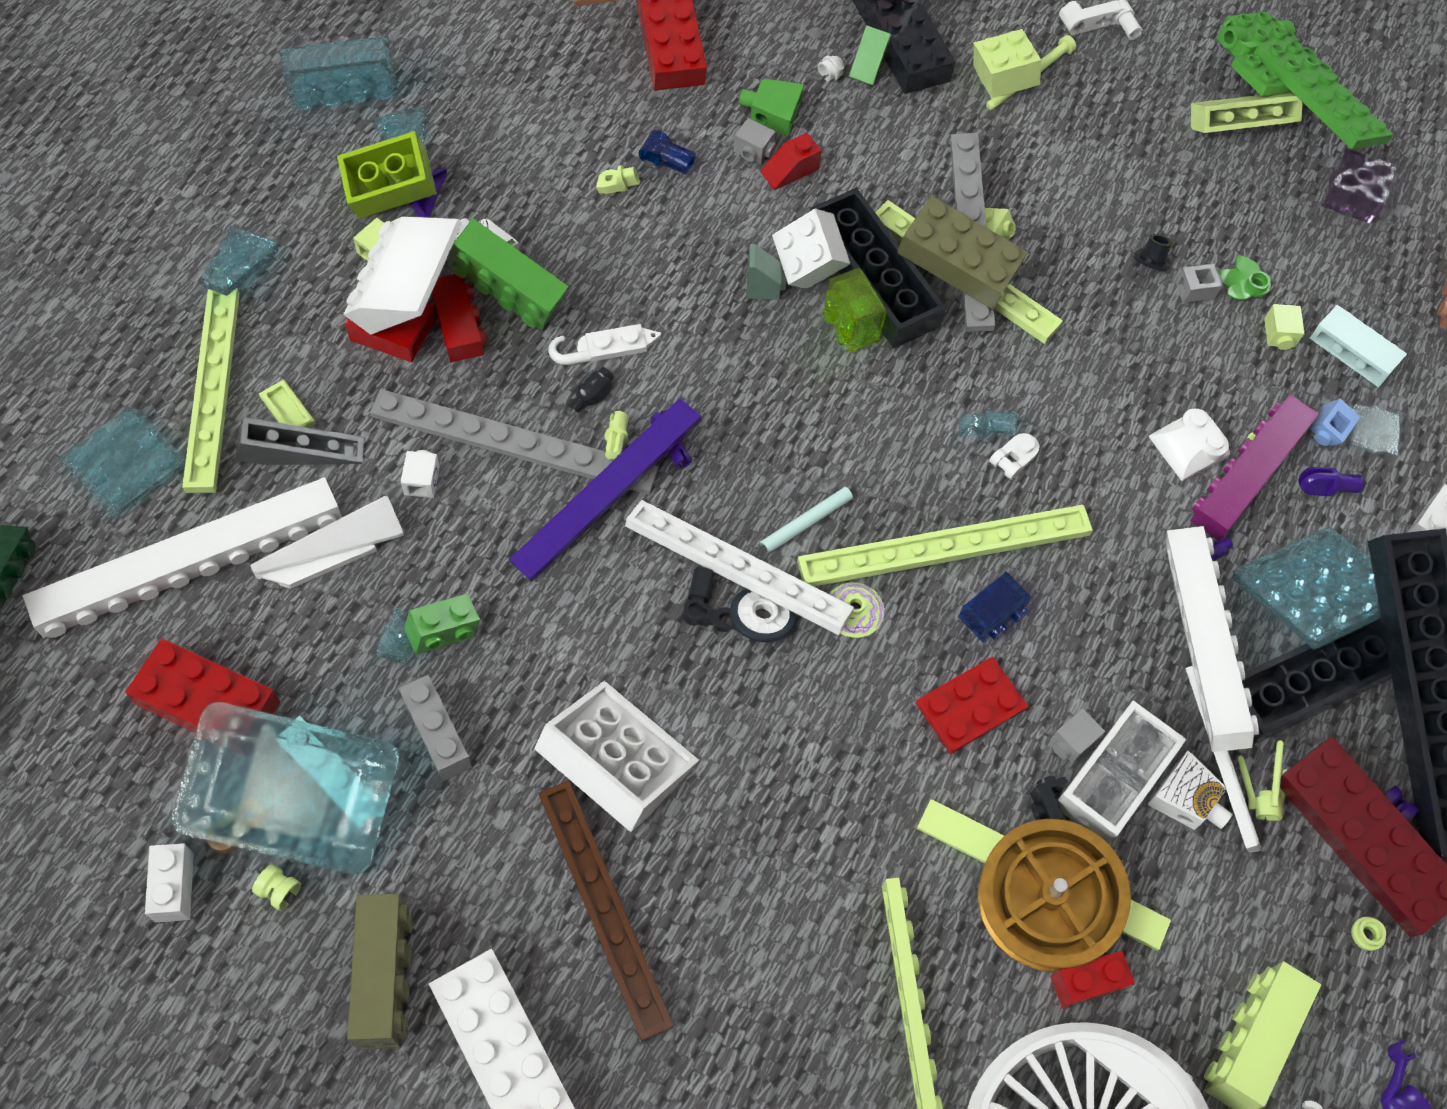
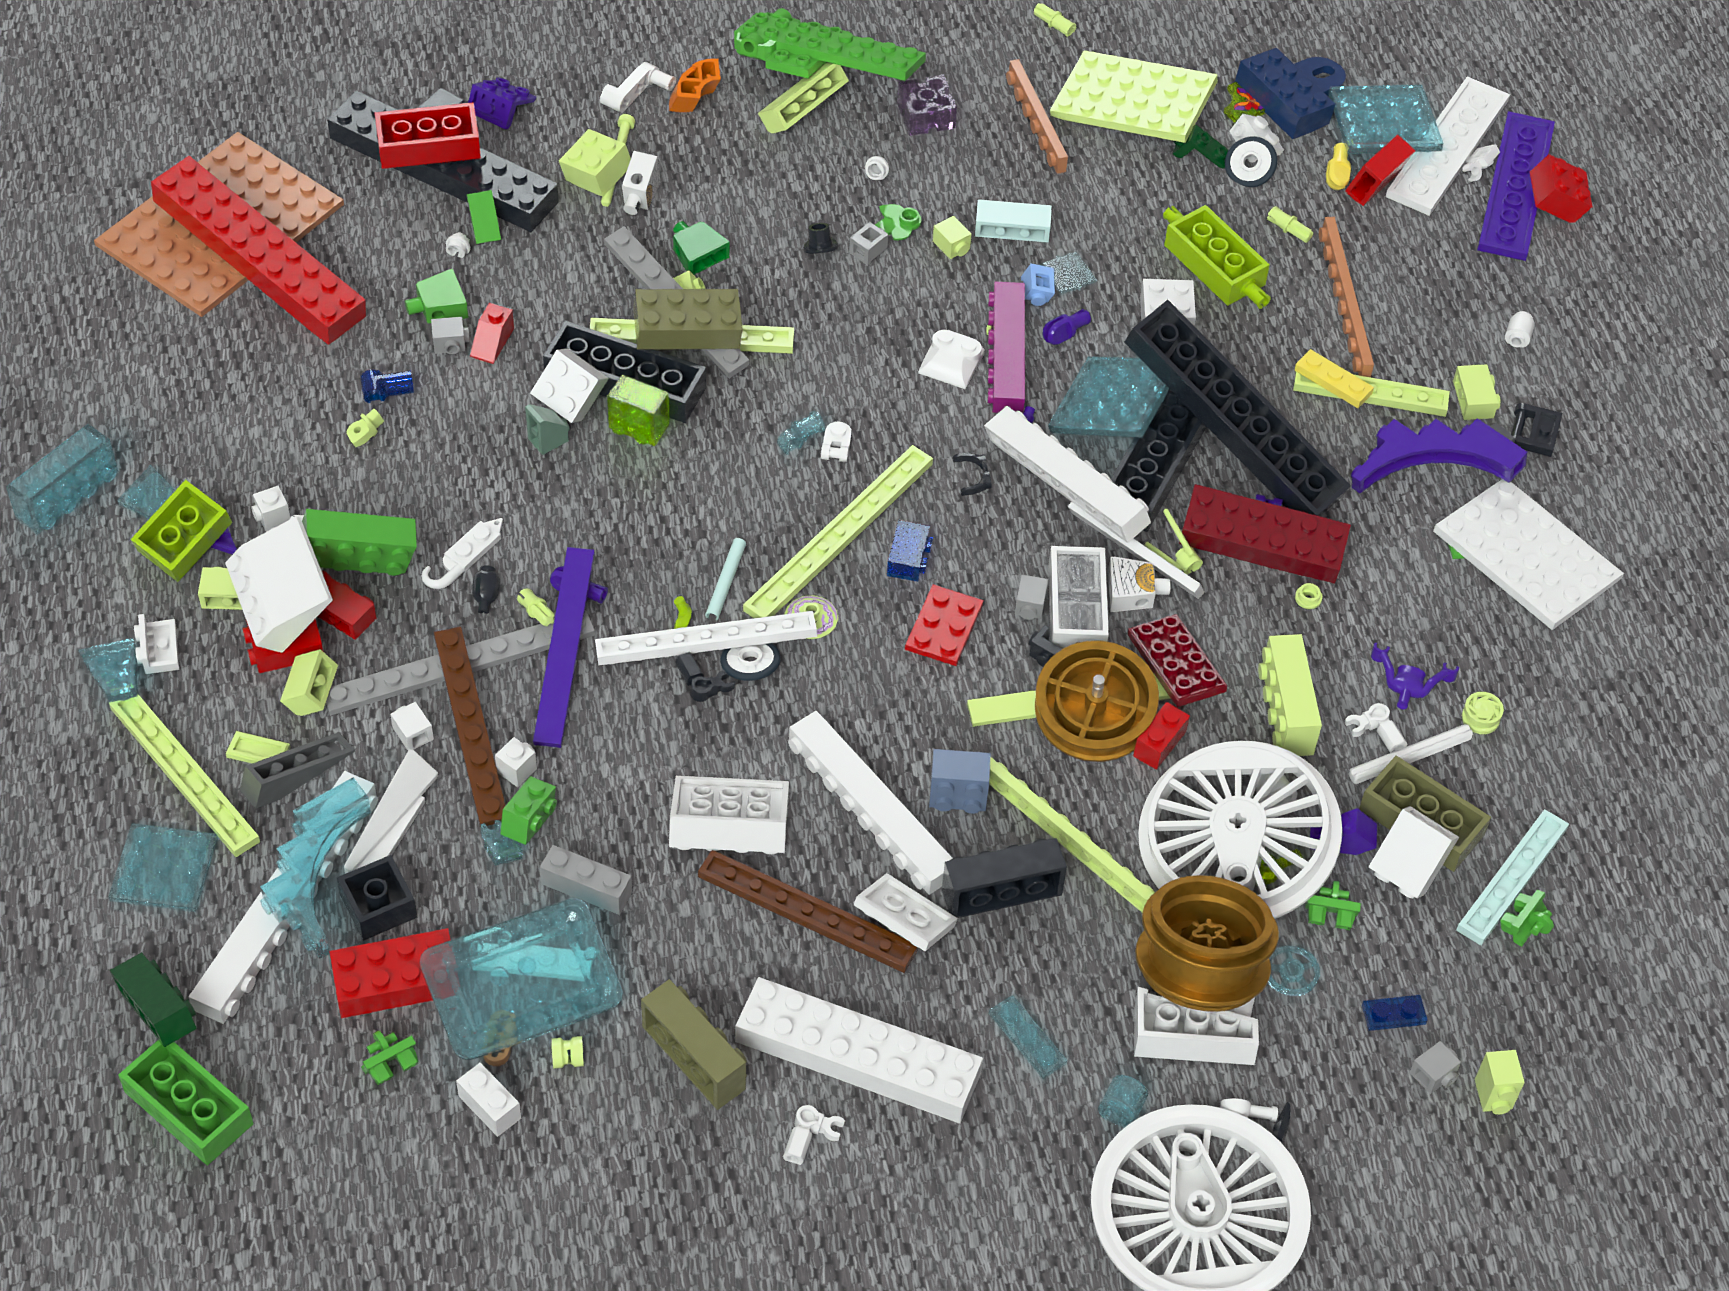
camera: 35 degrees left, 10 degrees down
(146, 778) = (377, 1064): none -> bright green hips
(208, 537) = (300, 860): none -> clear light blue arch
(249, 614) = (377, 897): none -> black brick
(289, 261) = (157, 645): none -> white bracket
(371, 376) = (309, 683): none -> yellowish green brick
(467, 507) = (470, 725): none -> reddish brown plate
(475, 569) = (516, 761): none -> white brick
(479, 200) = (270, 508): none -> white brick
(688, 982) = (905, 912): none -> white plate
(740, 530) = (684, 614): none -> lime bar
(753, 844) = (870, 800): none -> white brick
(808, 1020) = (1004, 878): none -> black brick
(848, 883) = (959, 780): none -> sand blue brick
(1031, 104) = (640, 182): none -> white torso
(1038, 193) = (699, 246): none -> torso
(1127, 586) = (980, 460): none -> black cap
(1153, 43) = (695, 82): none -> orange brick
(1173, 908) = (1177, 660): none -> dark red tile
(1263, 217) = (877, 168): none -> white plate

